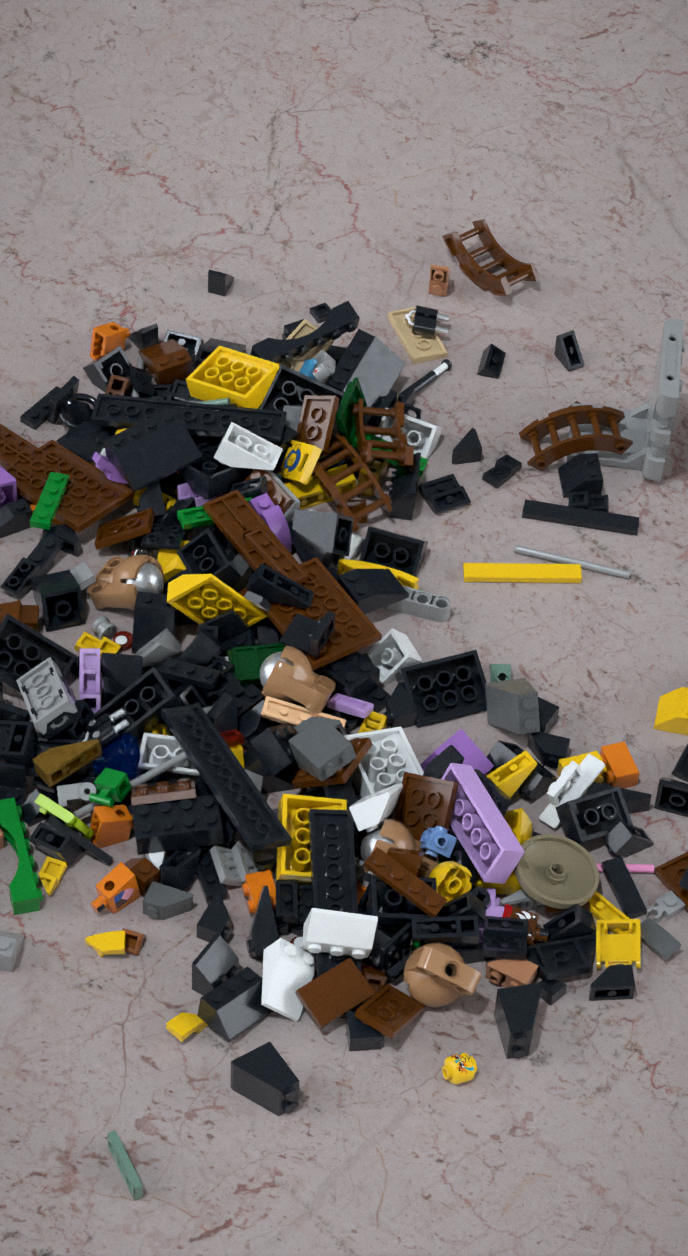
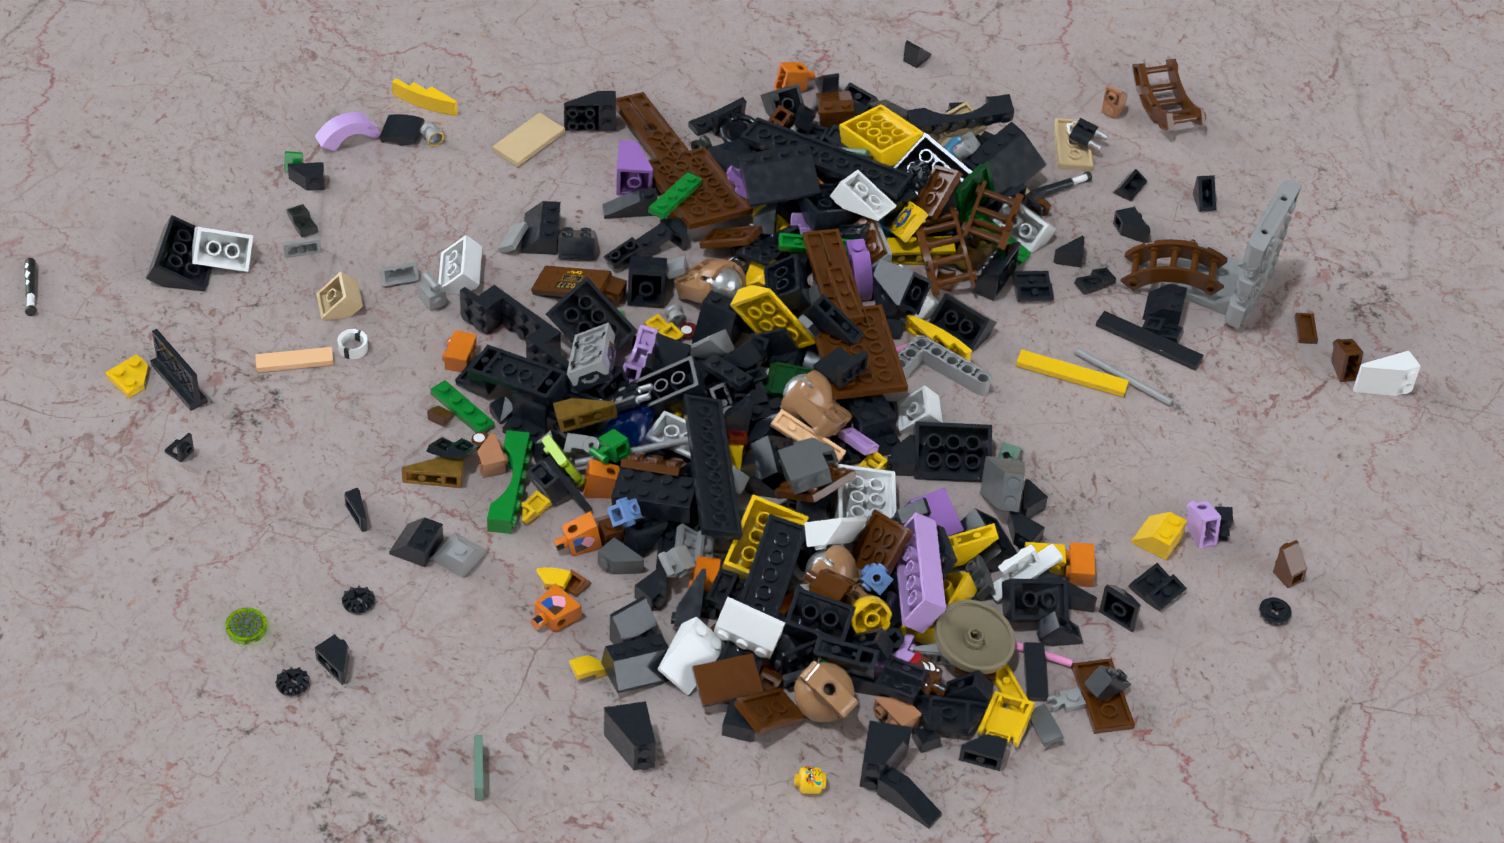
camera: 20 degrees right, 0 degrees up
(46, 435) = (703, 141): none -> pearl dark grey wheel
(126, 975) = (555, 610): none -> orange torso
(157, 852) = (624, 512): none -> medium blue brick
(230, 886) = (677, 561): none -> light grey brick
(297, 408) = (923, 175): none -> black gear
(372, 588) = (922, 346): black slope -> none
(405, 882) = (824, 602): reddish brown plate -> none
(419, 404) = (1045, 204): none -> reddish brown tile
(512, 403) = (1131, 224): none -> black slope
(531, 806) = (980, 577): none -> dark grey slope
(560, 1054) = (907, 797): none -> black slope

